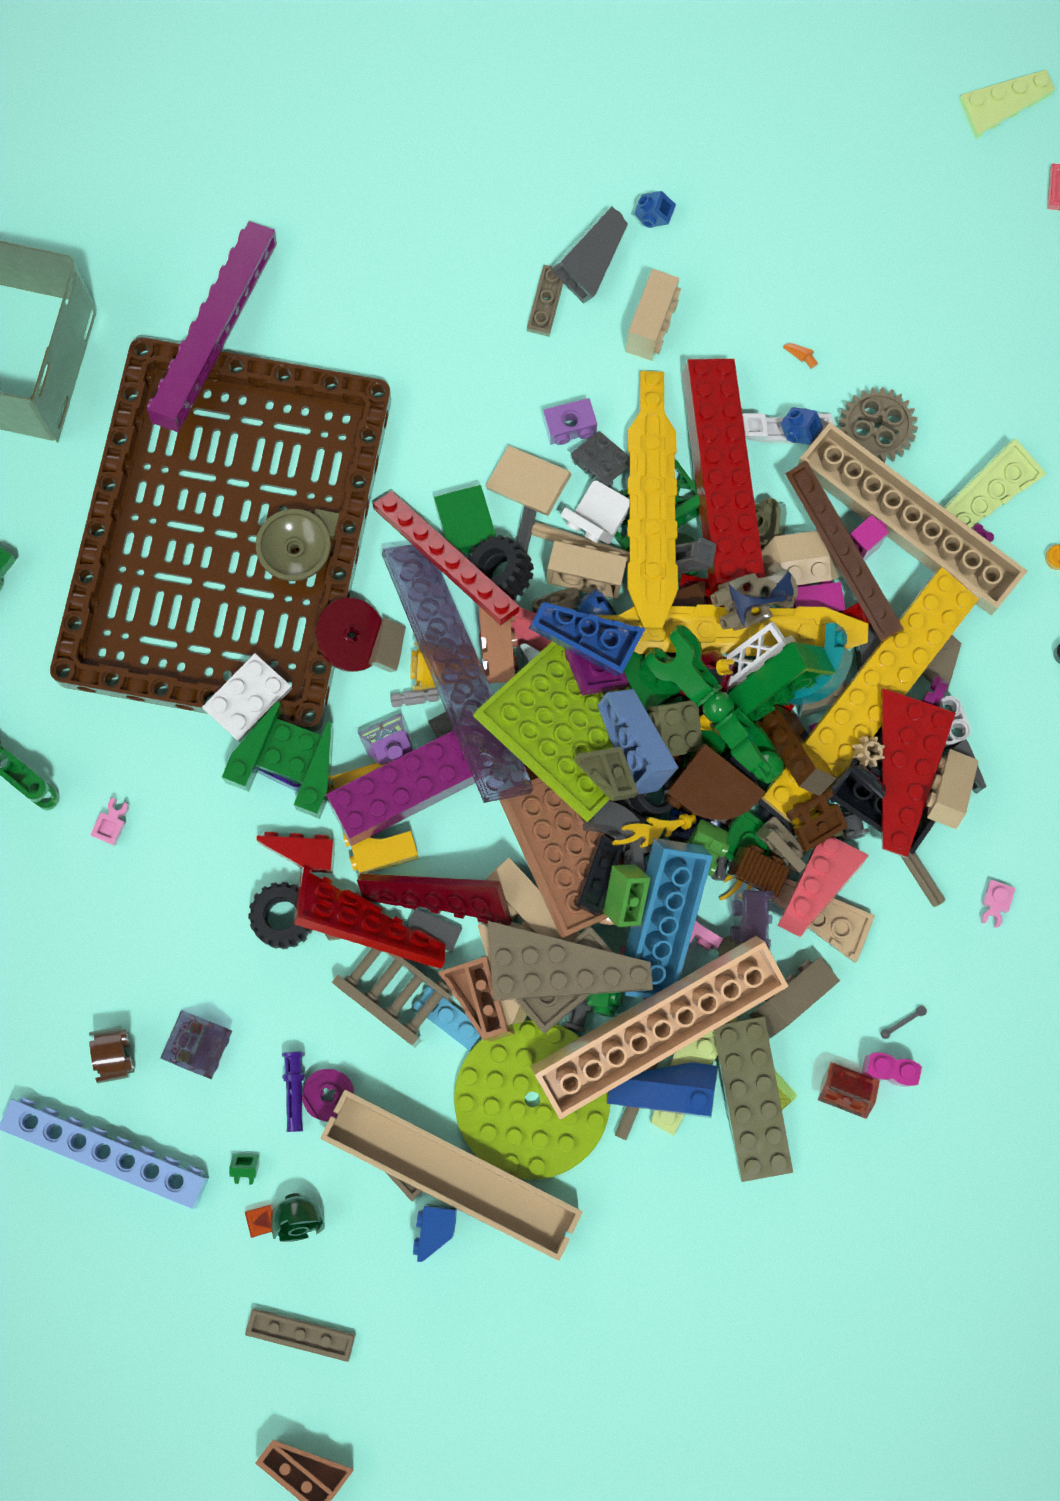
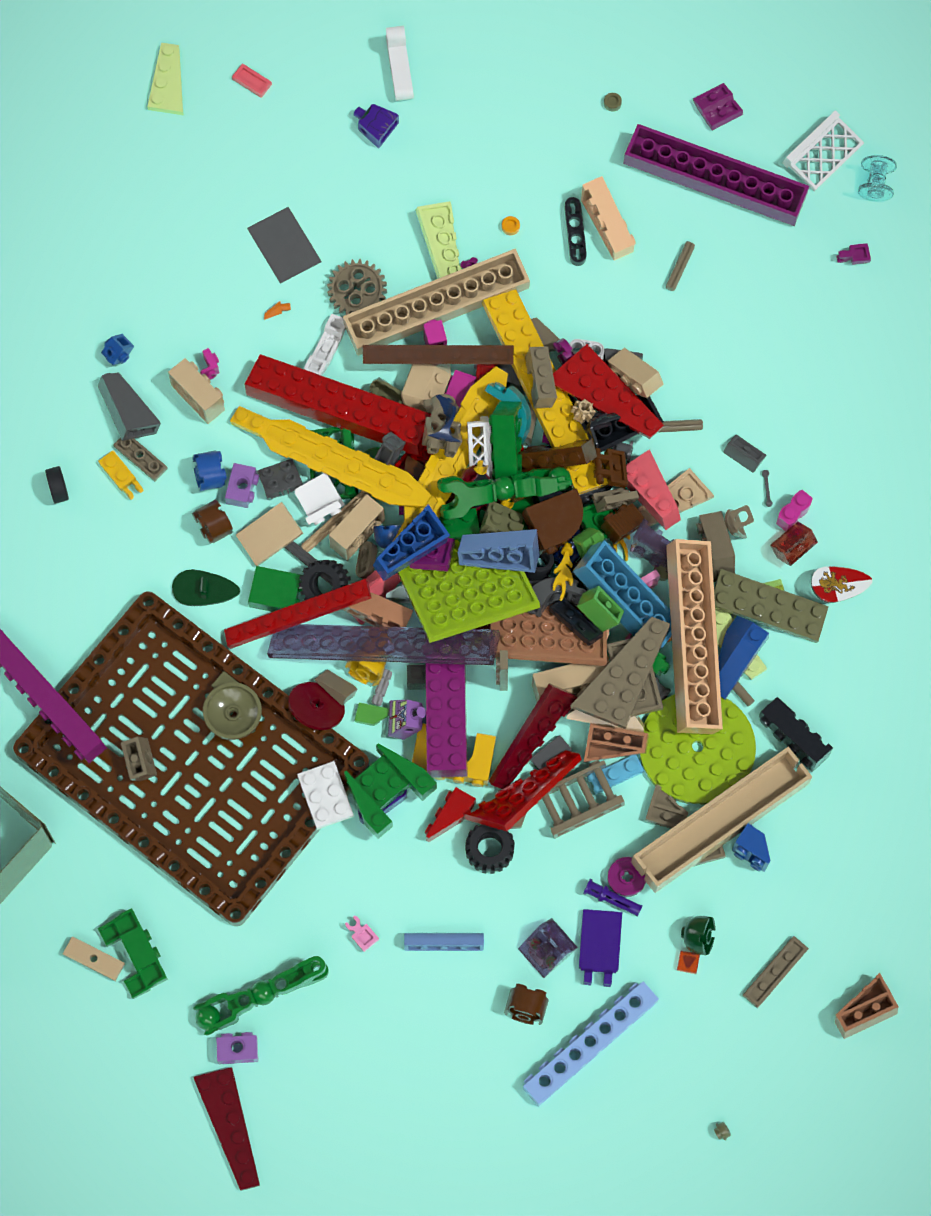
camera: 60 degrees left, 5 degrees down
(71, 1366) = (722, 1131): none -> olive plate
(147, 920) = (444, 941): none -> medium blue brick
(187, 474) = (138, 759): none -> dark tan brick
(230, 1104) = (600, 944): none -> dark purple tile
(244, 1166) = (647, 953): green tile -> none
(376, 700) = (370, 714): none -> bright green tile
(429, 445) = (203, 588): none -> dark green shield
(432, 1100) = (665, 810): none -> dark tan wing
(461, 227) = (57, 484): none -> black tyre
(494, 820) = (502, 670): none -> dark tan plate
(507, 412) = (213, 521): none -> reddish brown brick
(514, 289) = (119, 473): none -> yellow hinge
(565, 376) = (208, 470): none -> blue brick
(606, 1211) = (795, 734): none -> black wedge
(609, 772) = (514, 576): olive wing -> none
(691, 321) = (211, 360): none -> dark pink bracket
(801, 425) = (332, 336): blue brick -> none
(827, 1171) = (839, 583): none -> shield
(834, 1005) = (734, 523): none -> dark tan piece
(882, 680) = (539, 365): none -> dark tan arch
(885, 323) = (284, 245): none -> dark grey sticker
(932, 973) = (744, 453): none -> dark grey slope
(998, 899) = (719, 388): bright pink plate -> none

